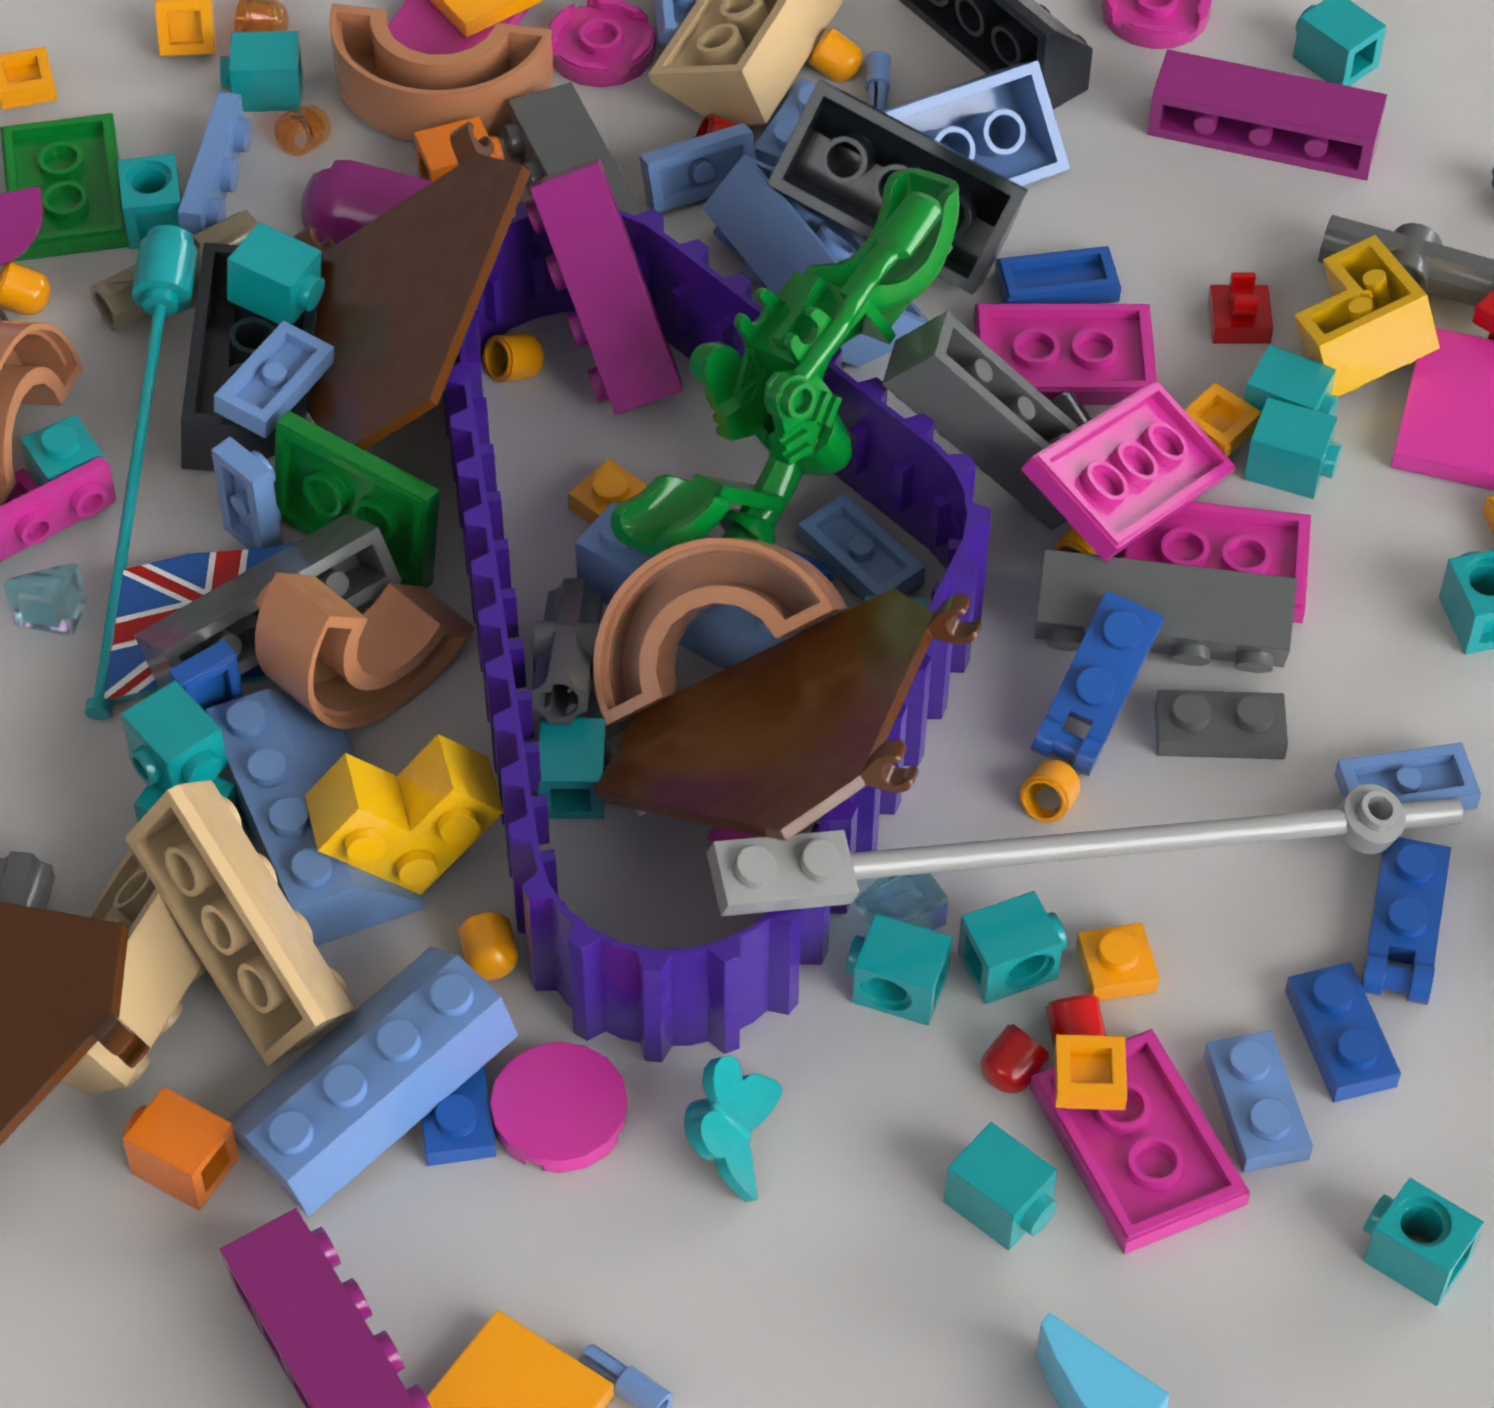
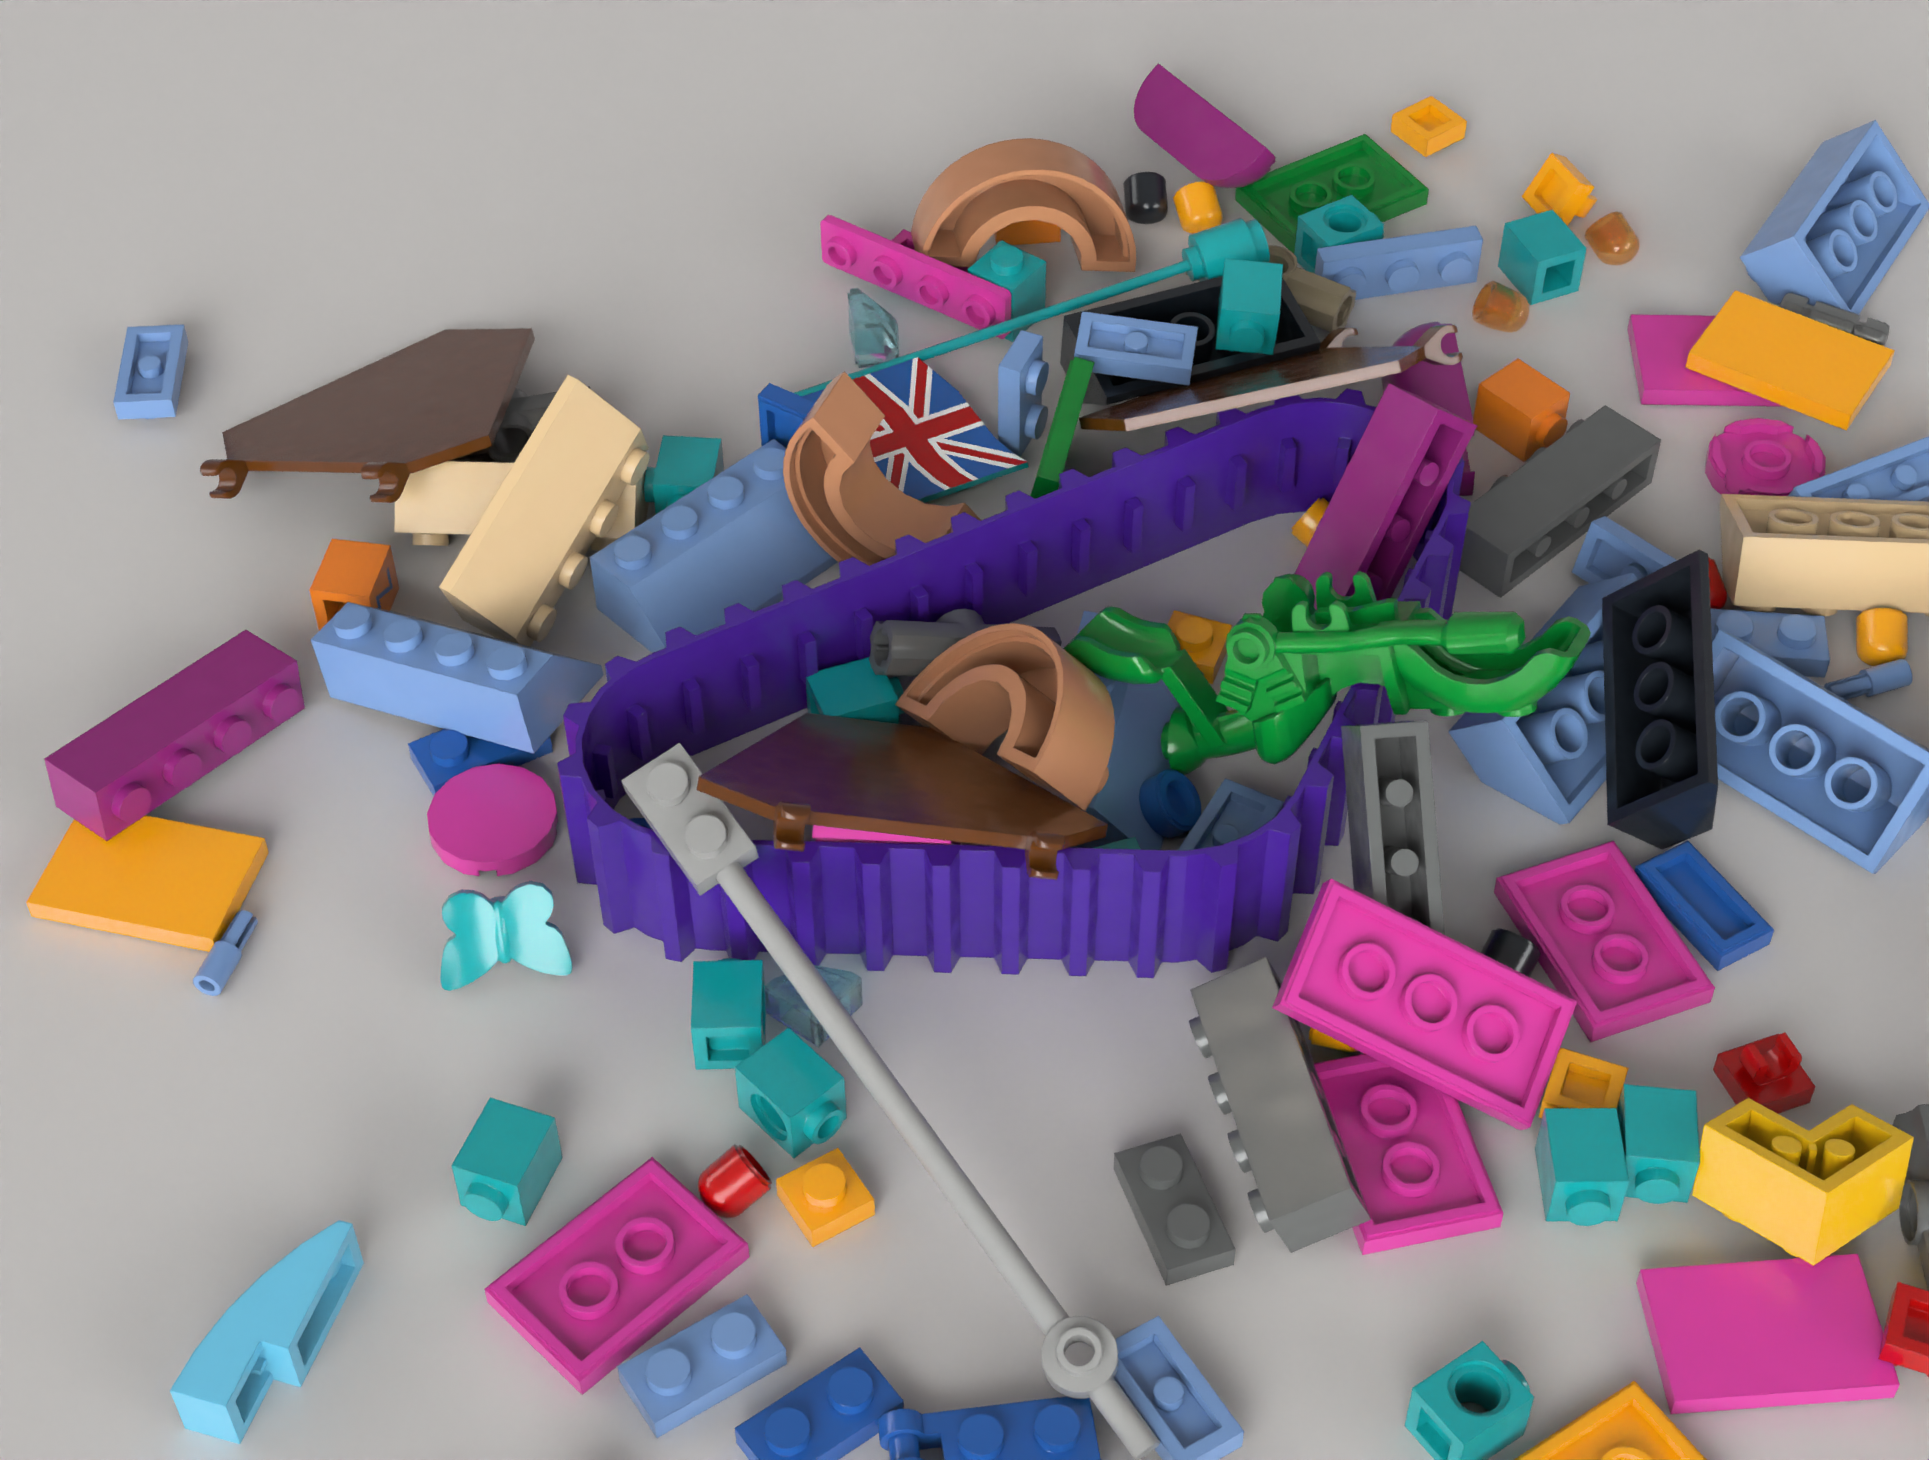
camera: 70 degrees right, 5 degrees down
(173, 739) = (716, 423): teal brick -> none
(343, 555) = (938, 454): dark grey brick -> none
(406, 823) = (705, 571): yellow brick -> none
(416, 91) = (1580, 352): nougat brick -> none
(1013, 1060) = (662, 1139): red piece -> none
(1050, 774) = (1014, 1082): light orange piece -> none
(1090, 1072) = (652, 1189): light orange plate -> none
(1099, 680) = (1146, 1069): blue plate -> none

